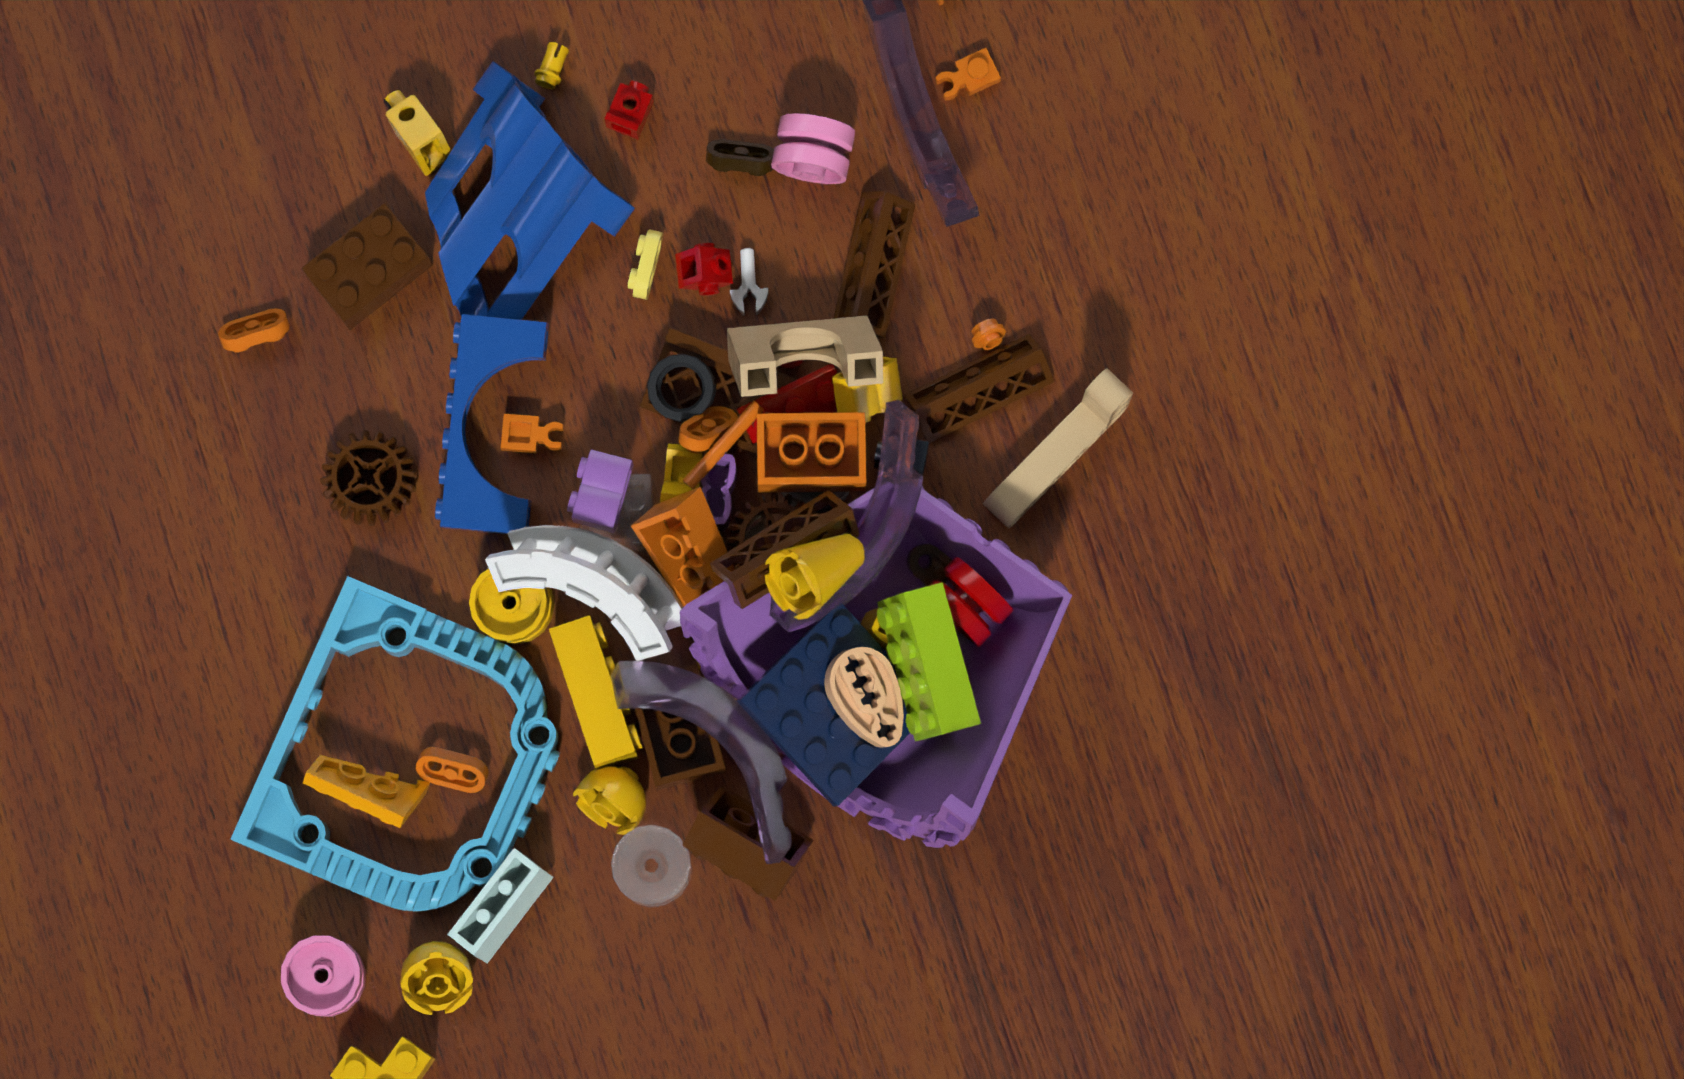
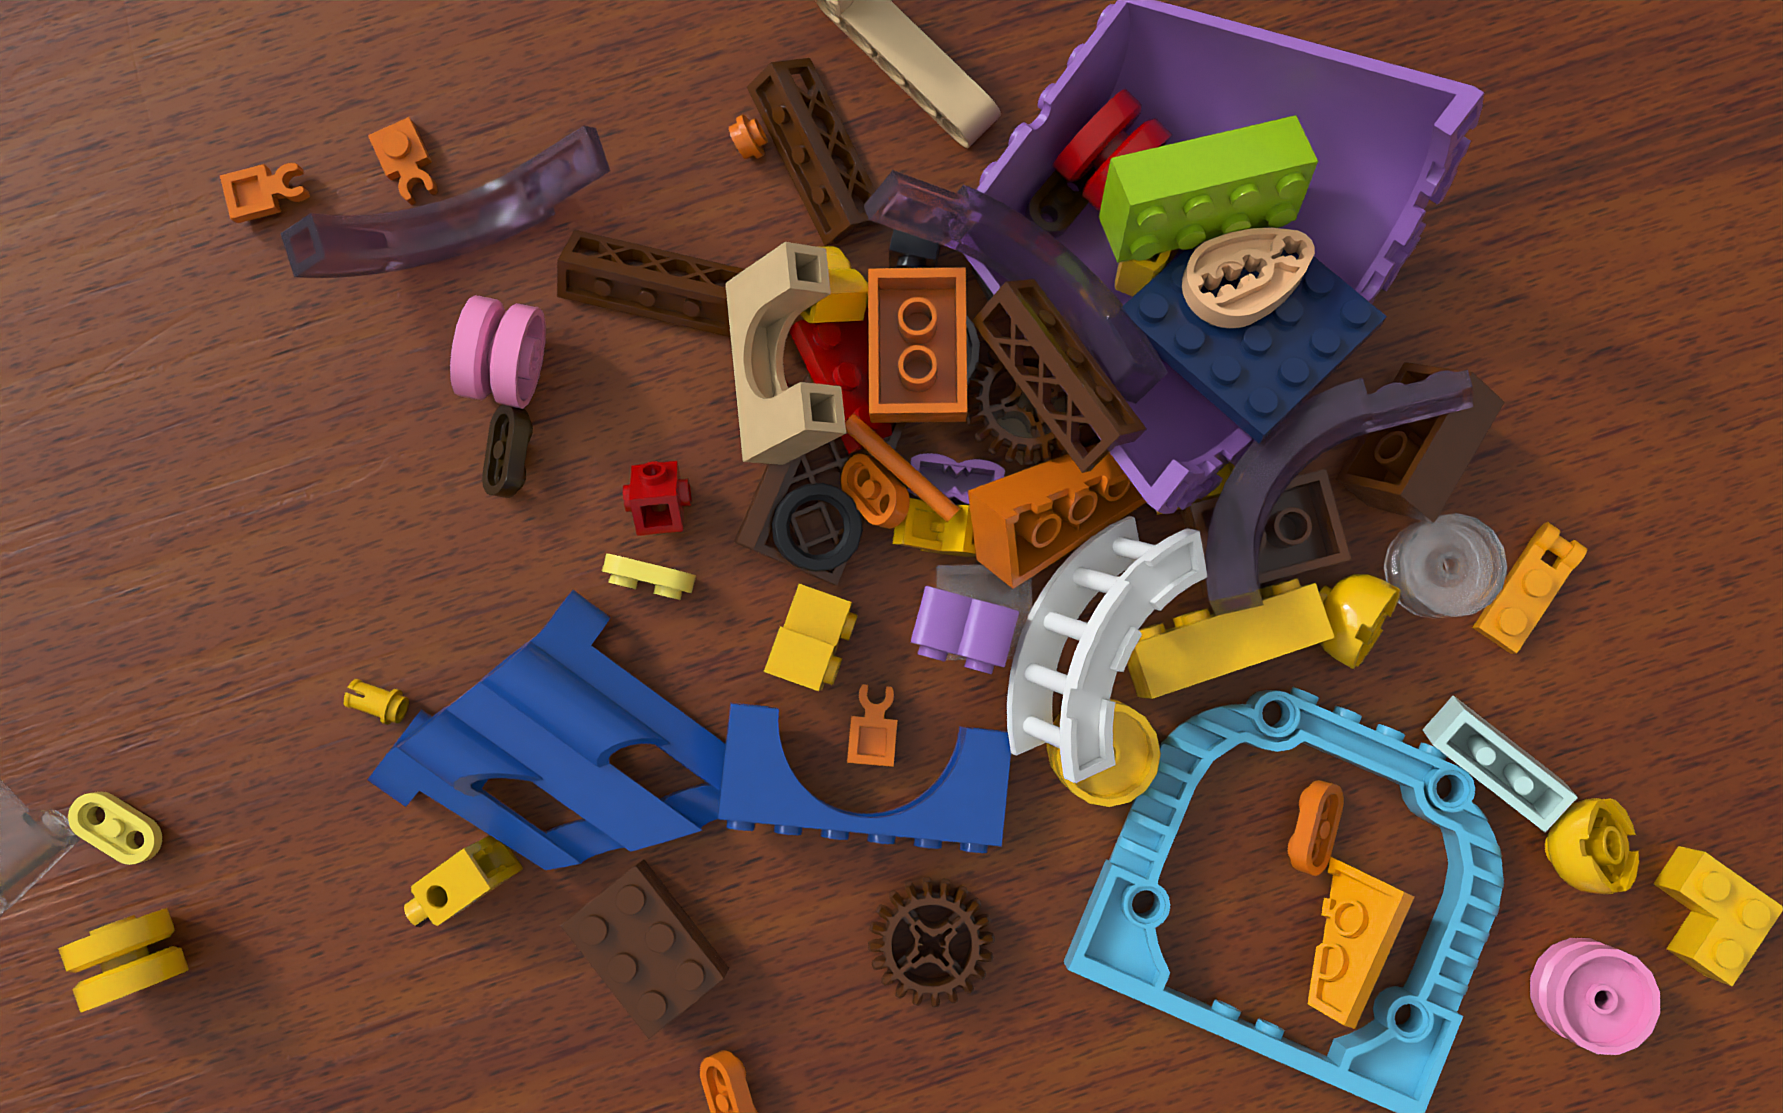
camera: 90 degrees left, 5 degrees up
(595, 384) = (810, 638): none -> yellow brick
(629, 121) = (454, 598): red brick -> none
(636, 940) = (1529, 589): none -> light orange plate
(748, 283) = (676, 444): white bar -> none
(811, 573) = (1103, 328): yellow cone -> none

